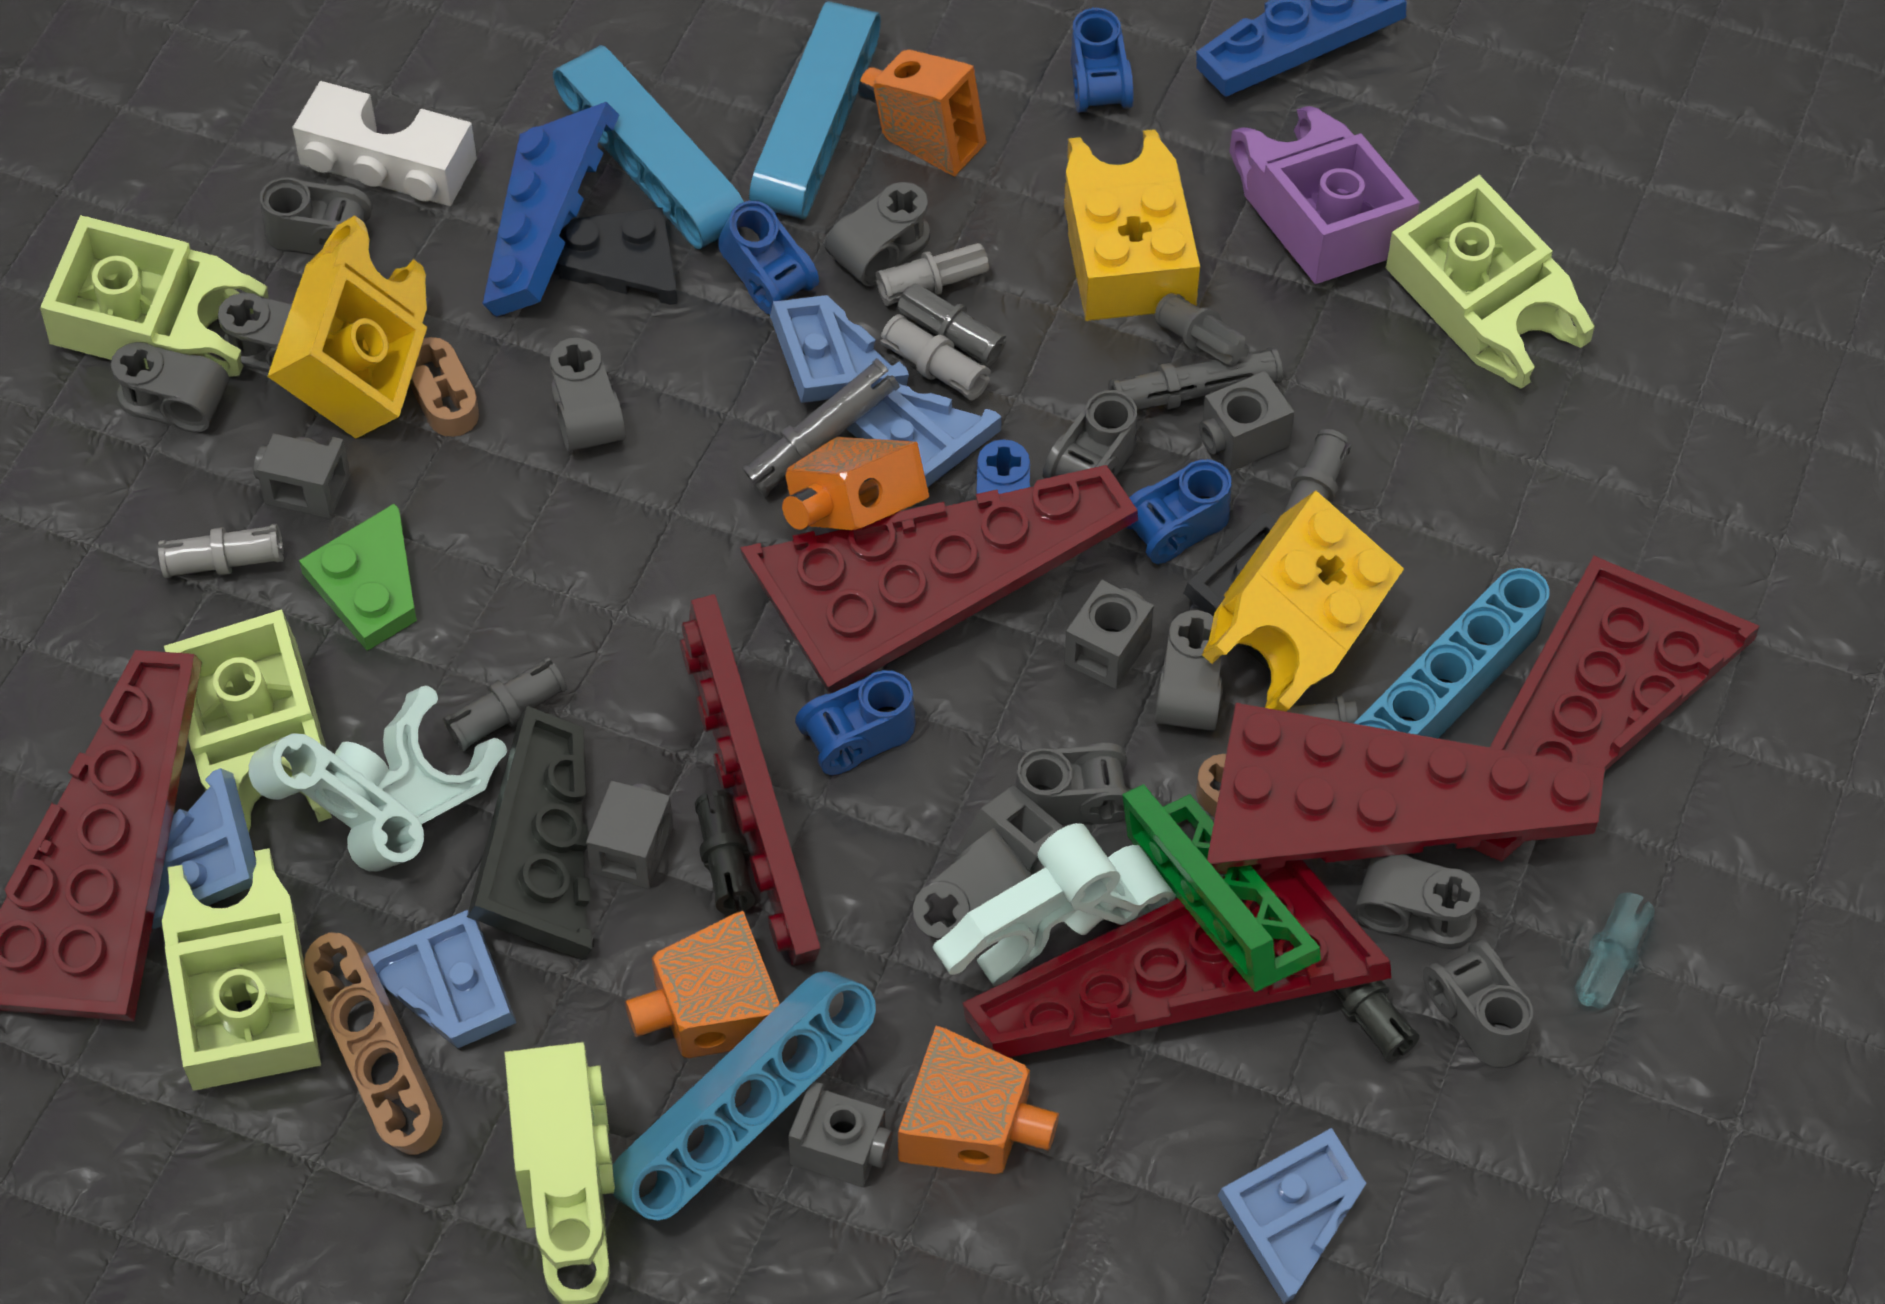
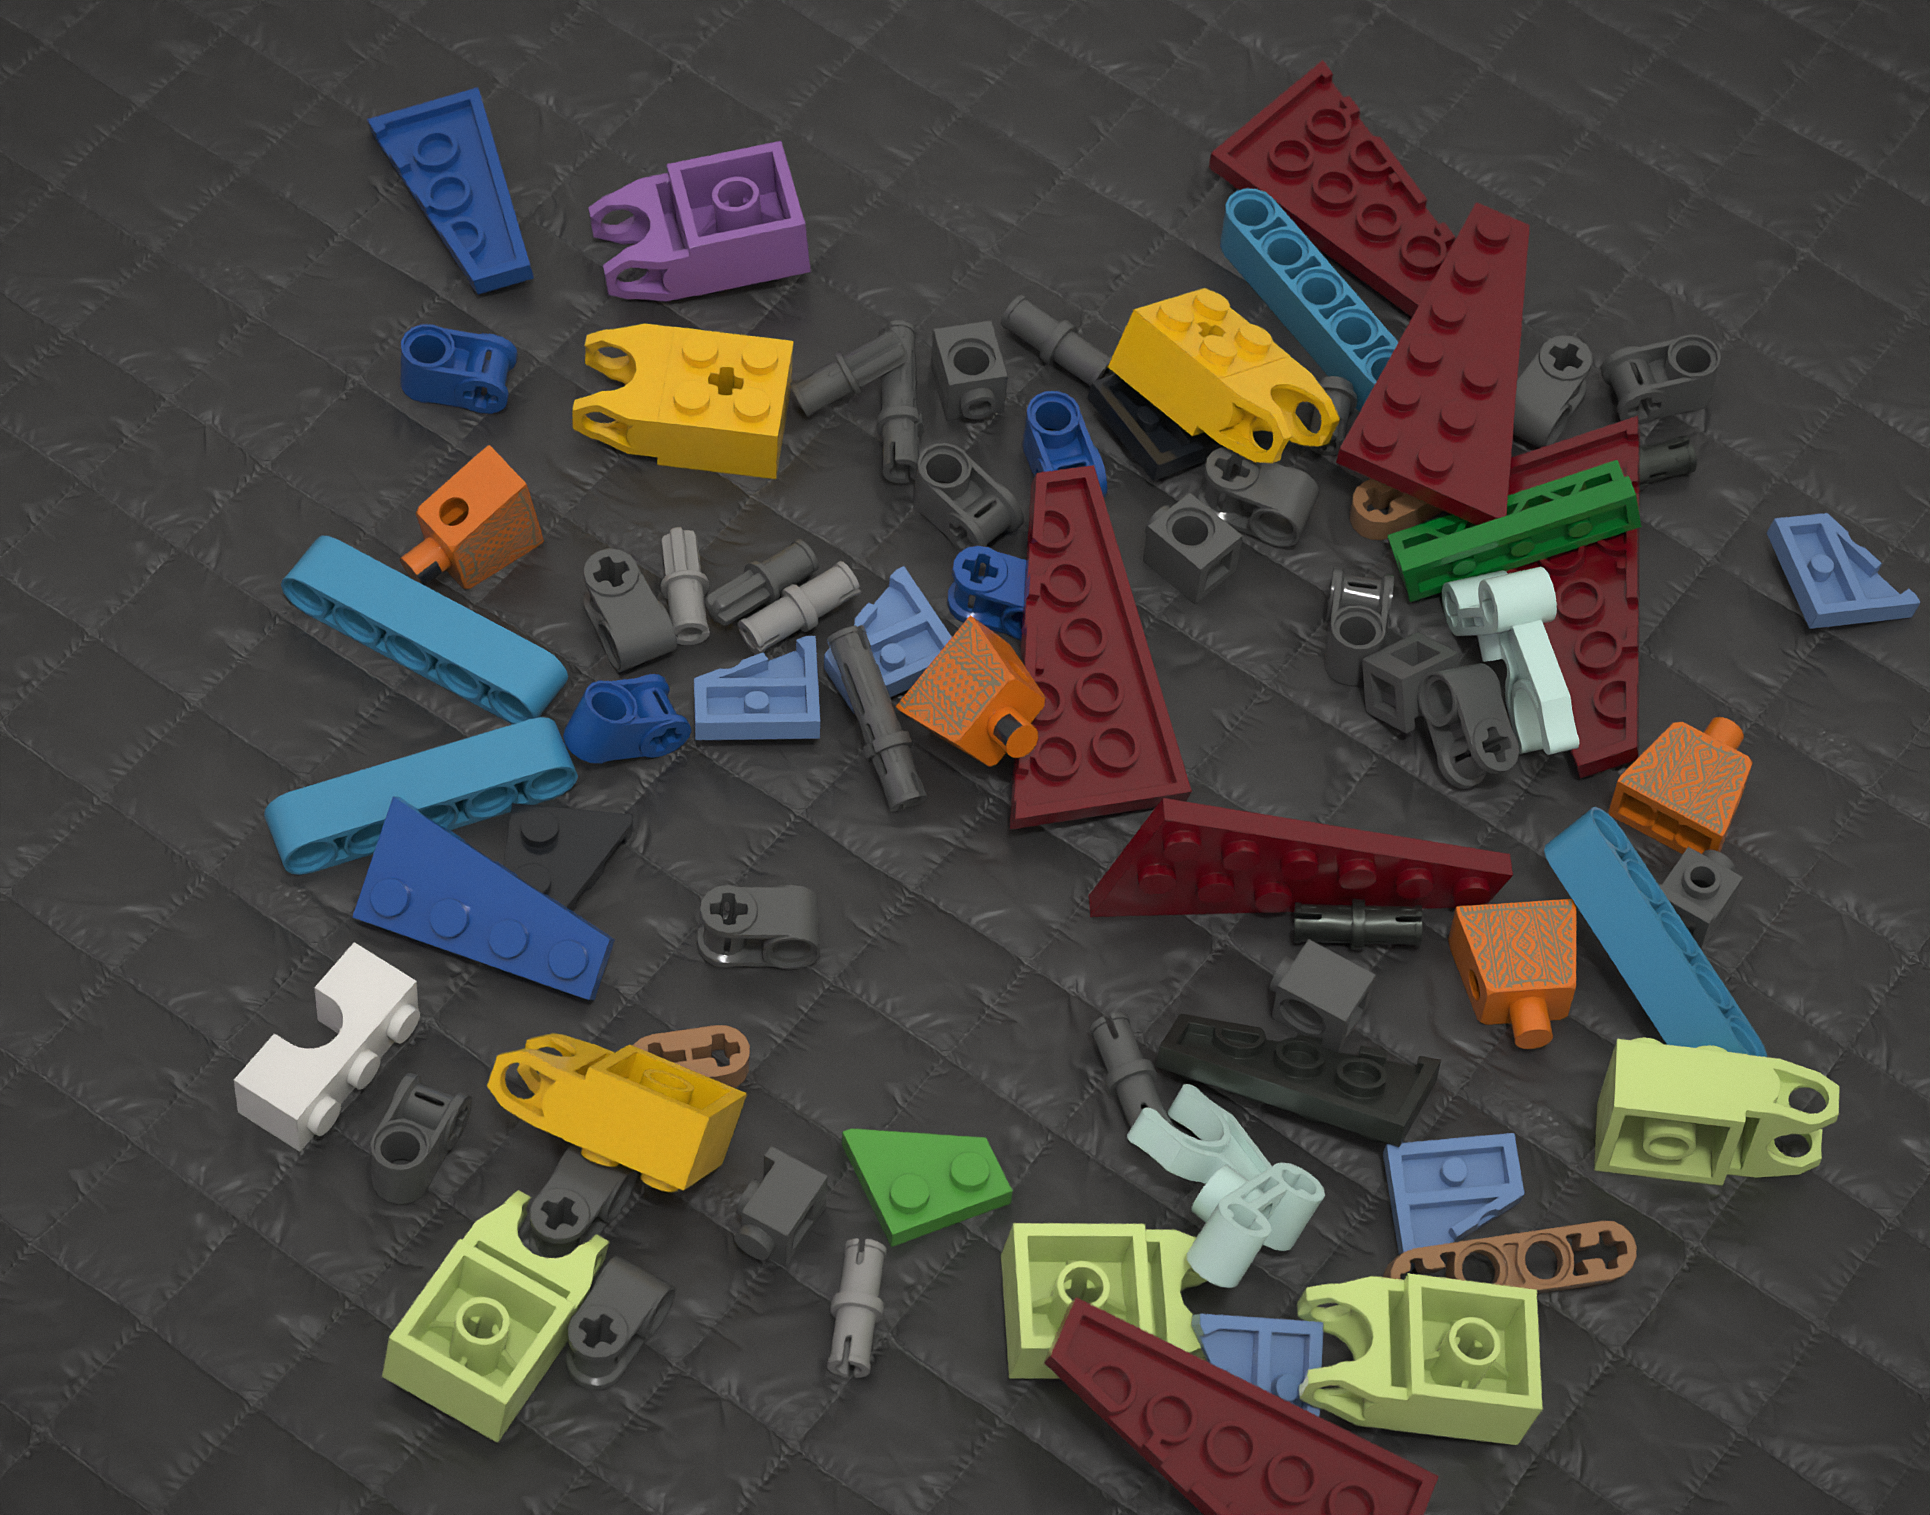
camera: 80 degrees left, 0 degrees up
(854, 722) = (1240, 778): blue piece -> none
(1486, 279) = (866, 130): yellowish green brick -> none
(1613, 950) = (1627, 273): clear light blue axle -> none

